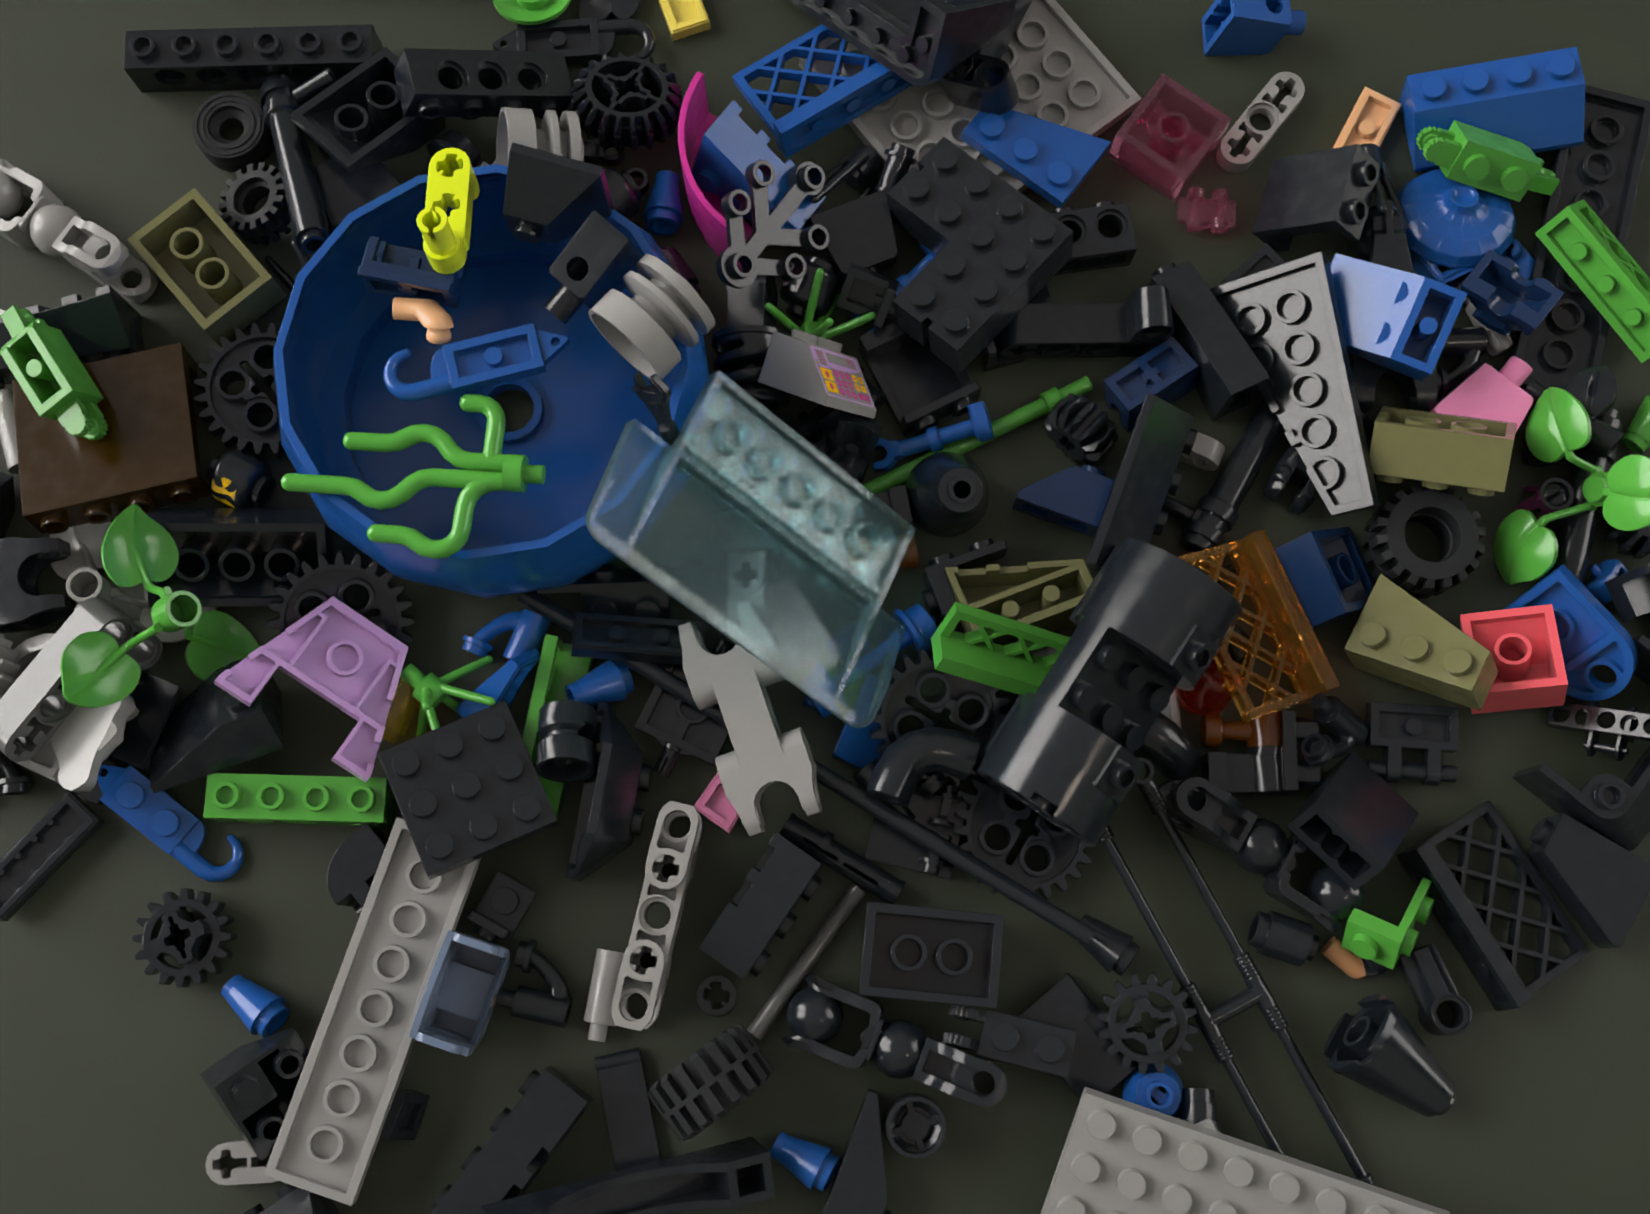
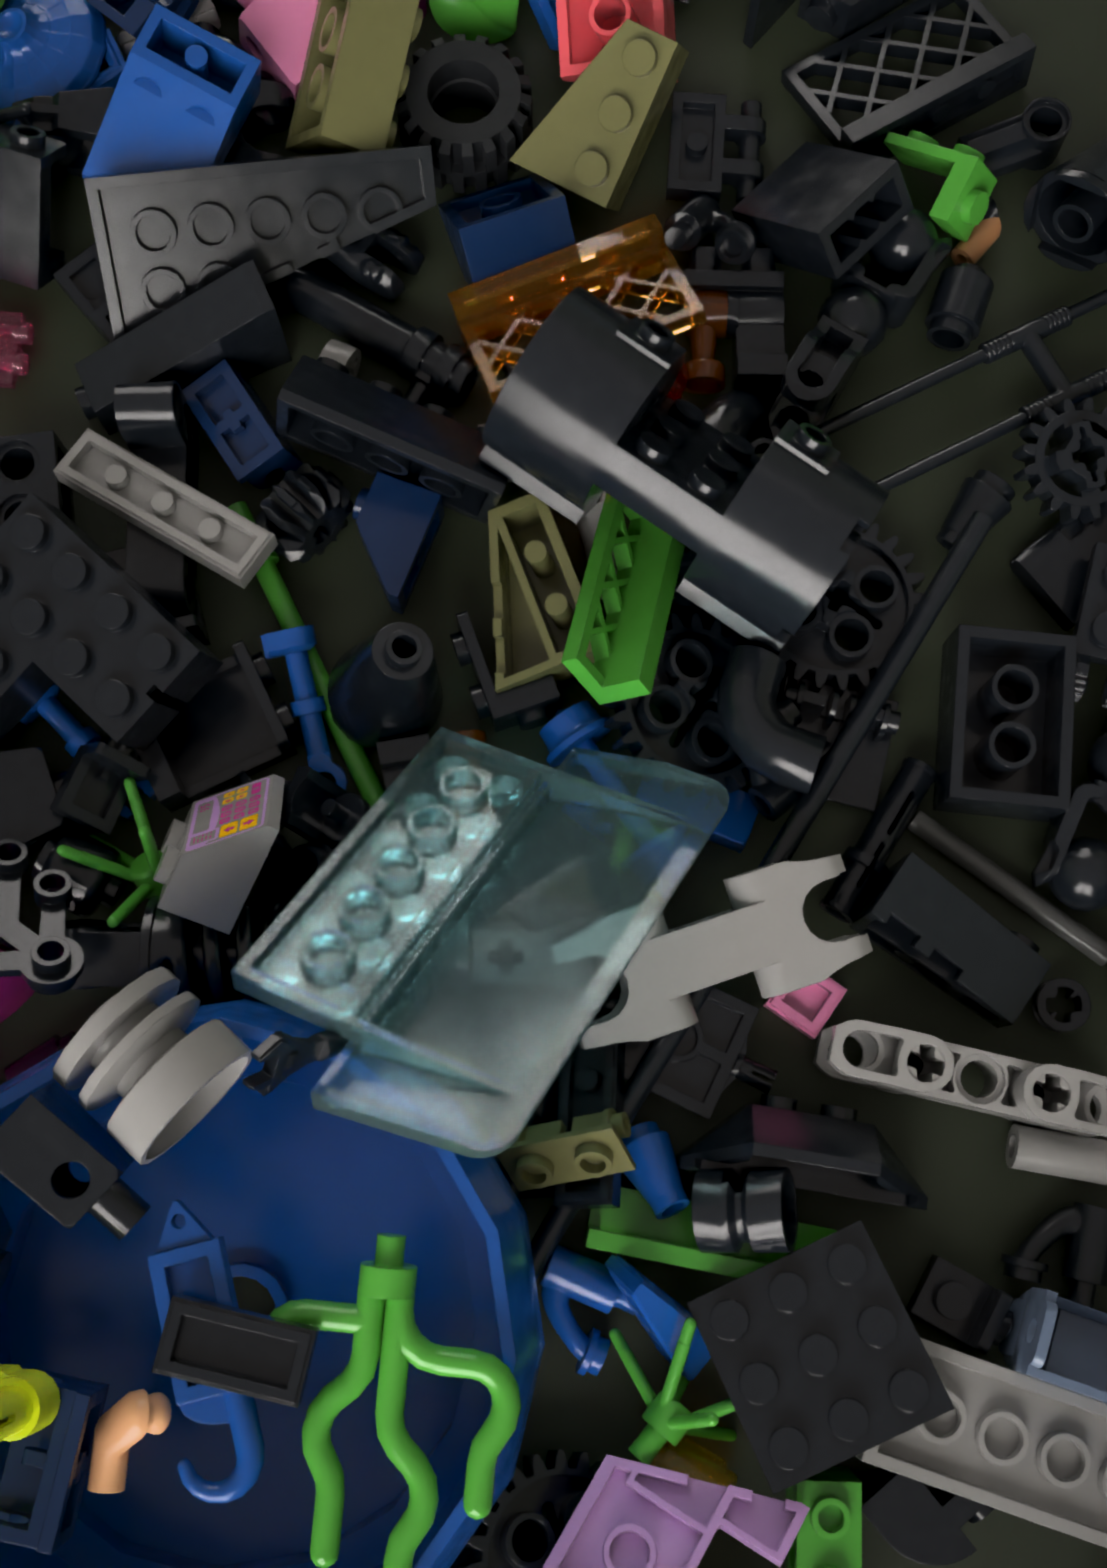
camera: 90 degrees left, 0 degrees up
(473, 378) = (236, 1350): none -> black tile
(607, 604) = (551, 1156): none -> olive hinge
(1076, 329) = (166, 508): none -> light grey tile

